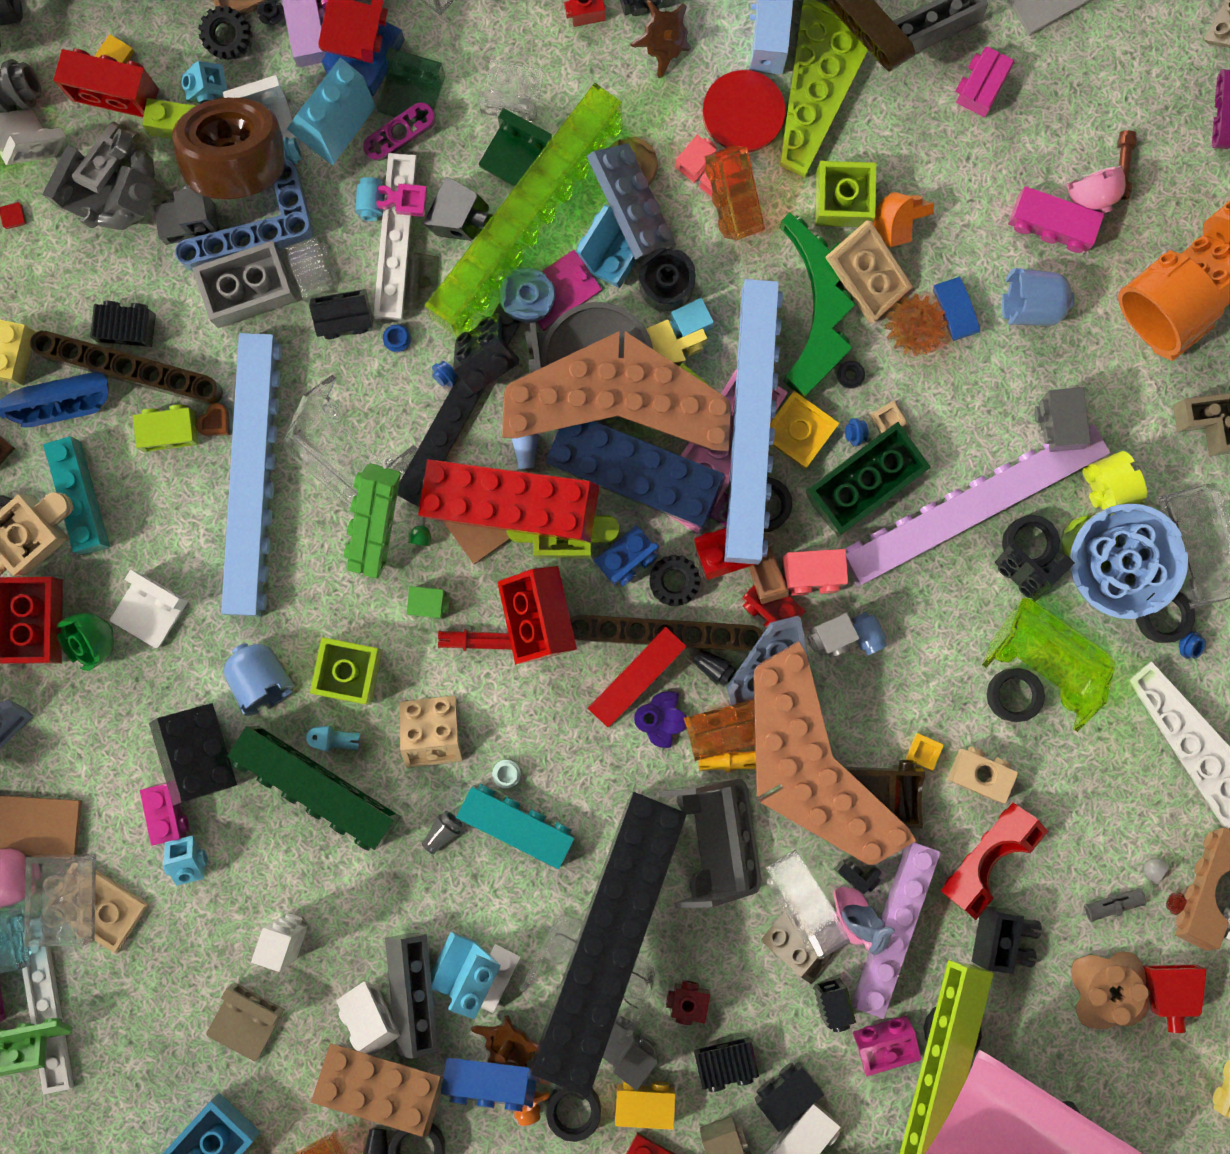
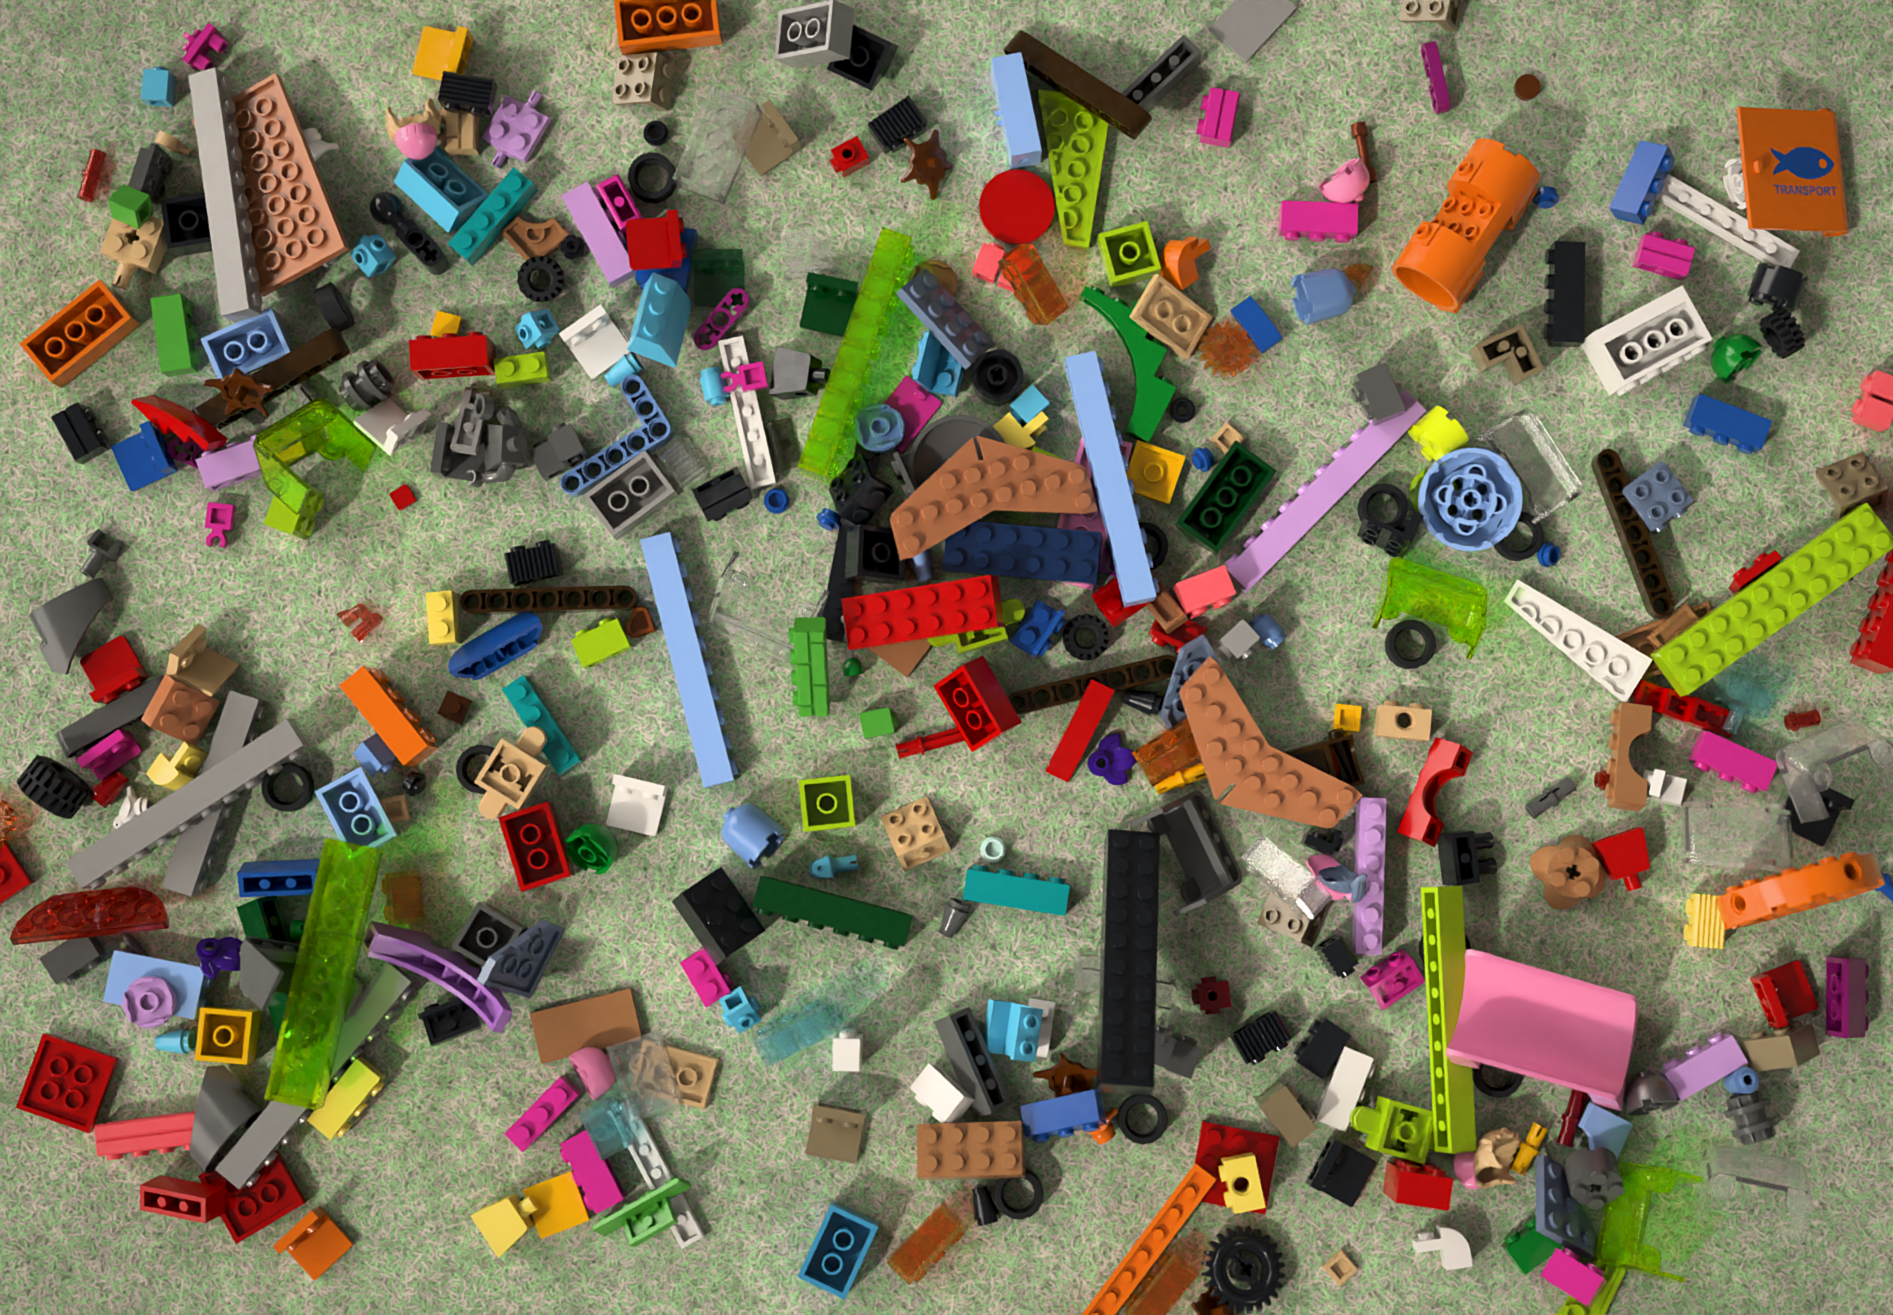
camera: 15 degrees left, 0 degrees up
(229, 148) = (593, 396): reddish brown wheel -> none
(232, 904) = (795, 1032): none -> clear light blue brick
(476, 425) = (873, 555): none -> black brick
(646, 1107) = (1202, 1093): yellow brick -> none
(1081, 288) = (1358, 273): none -> clear orange tile
(1155, 869) = (1575, 756): light grey hinge -> none

